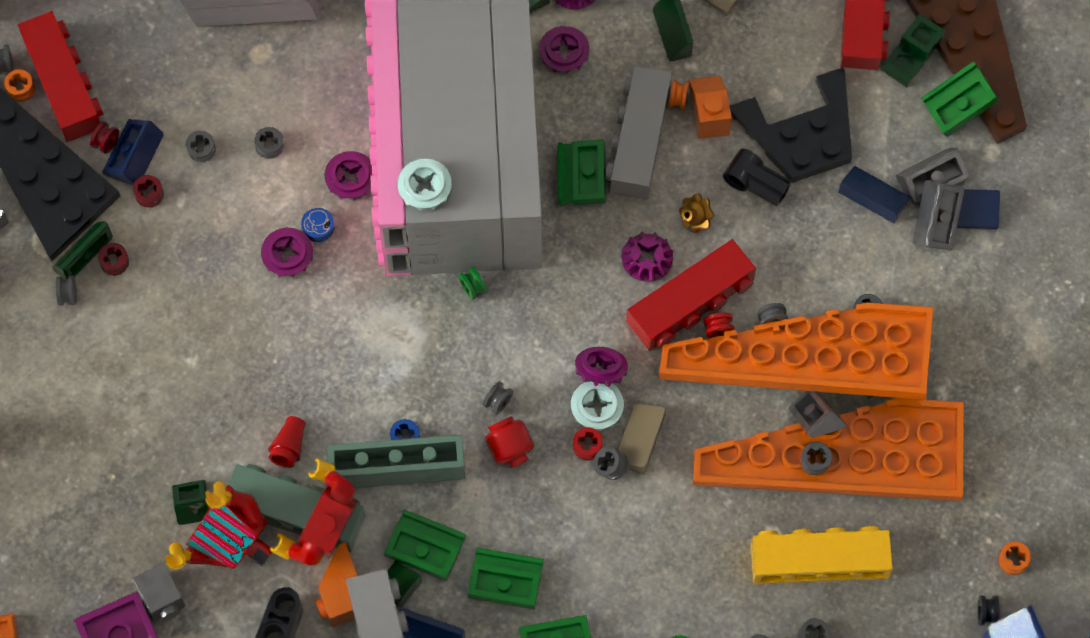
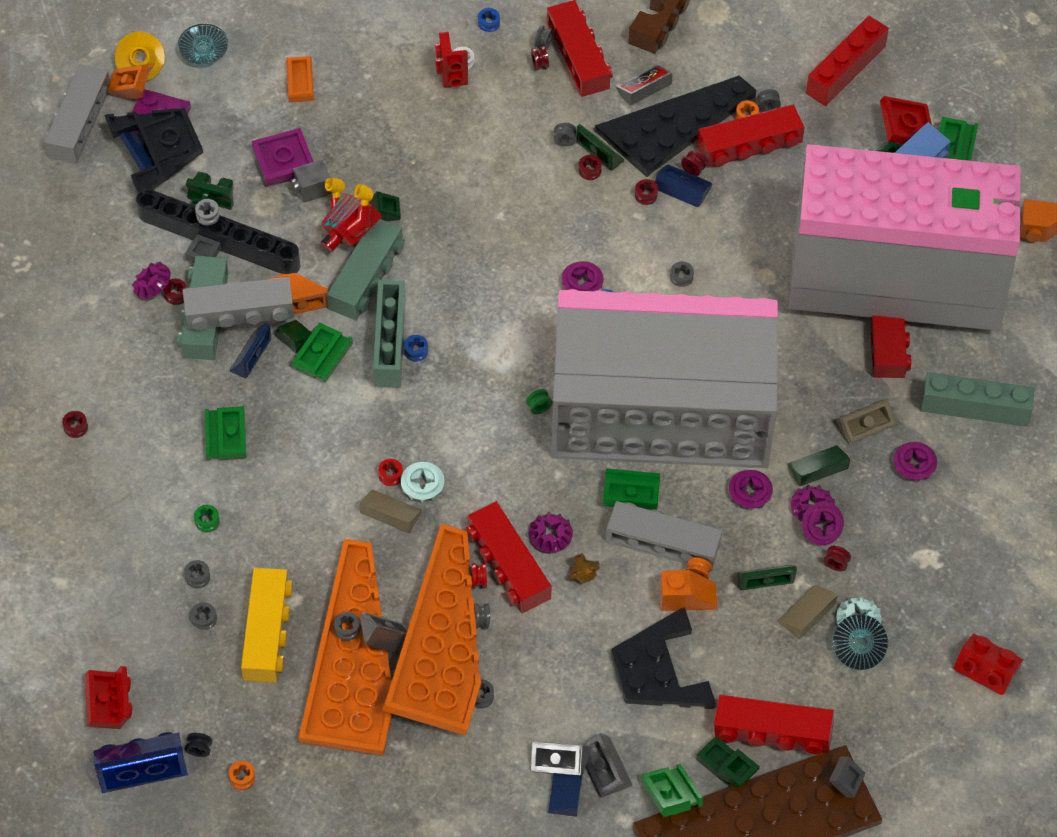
camera: 95 degrees right, 10 degrees down
(209, 150) = (683, 235): dark grey bush -> none
(287, 444) = (419, 268): red cone -> none
(326, 520) = (341, 271): red torso -> none
(423, 171) = (587, 308): light aqua gear -> none
(498, 398) = (437, 410): dark grey bush -> none
(505, 578) = (286, 403): green plate -> none
(509, 442) = (397, 414): red head -> none
(608, 454) = (369, 483): dark grey bush -> none
(609, 359) = (460, 477): magenta gear -> none
(750, 174) = (616, 615): black piece -> none
(873, 194) = (590, 713): dark blue slope -> none

